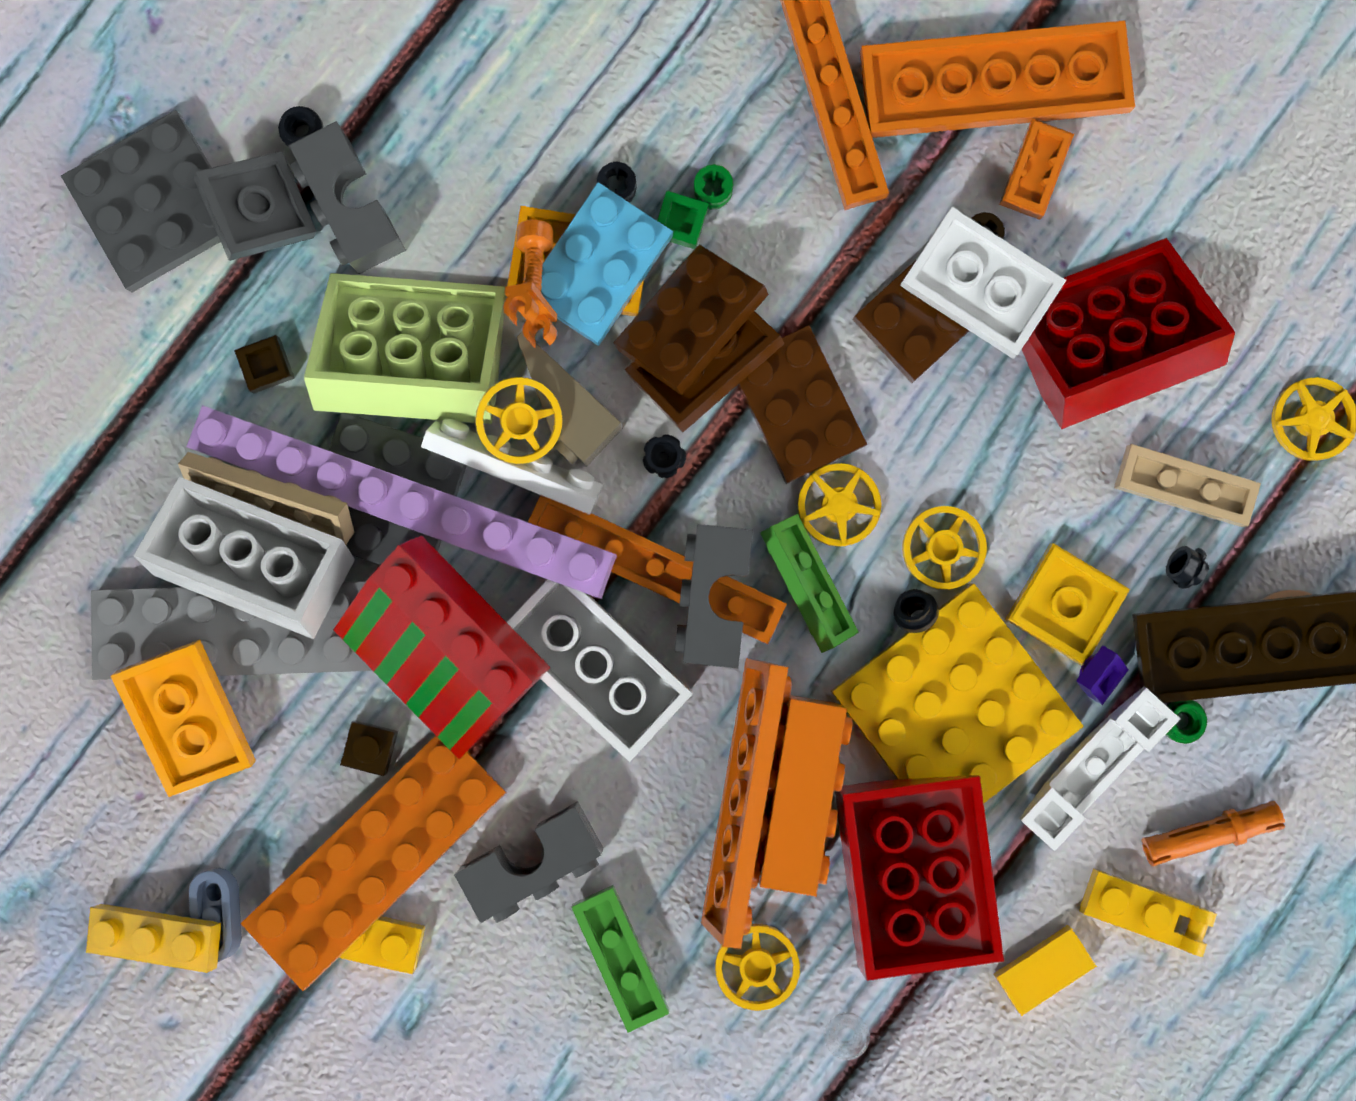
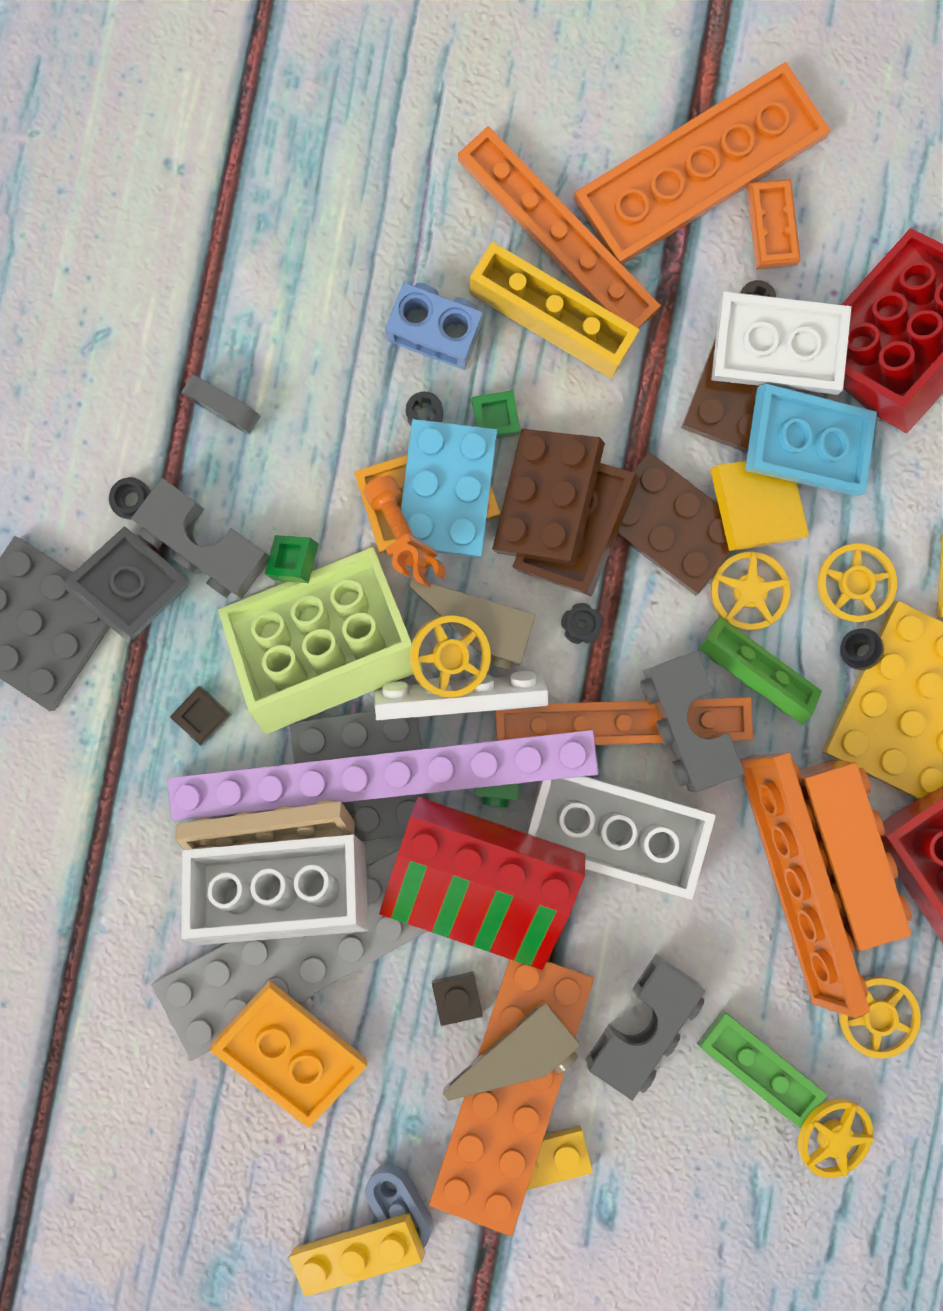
camera: 30 degrees left, 0 degrees up
(402, 824) = (522, 1054): none -> dark tan slope
(421, 259) = (291, 559): none -> green plate
(428, 82) = (221, 404): none -> dark grey beam
(503, 574) = (498, 795): none -> green plate
(656, 1058) = (835, 1138): none -> yellow wheel
(658, 111) = (429, 335): none -> medium blue brick
(713, 171) = (520, 371): green bush -> none
(782, 145) = (552, 310): none -> yellow brick
(888, 424) = (757, 507): none -> yellow tile
(966, 389) = (811, 440): none -> medium azure plate

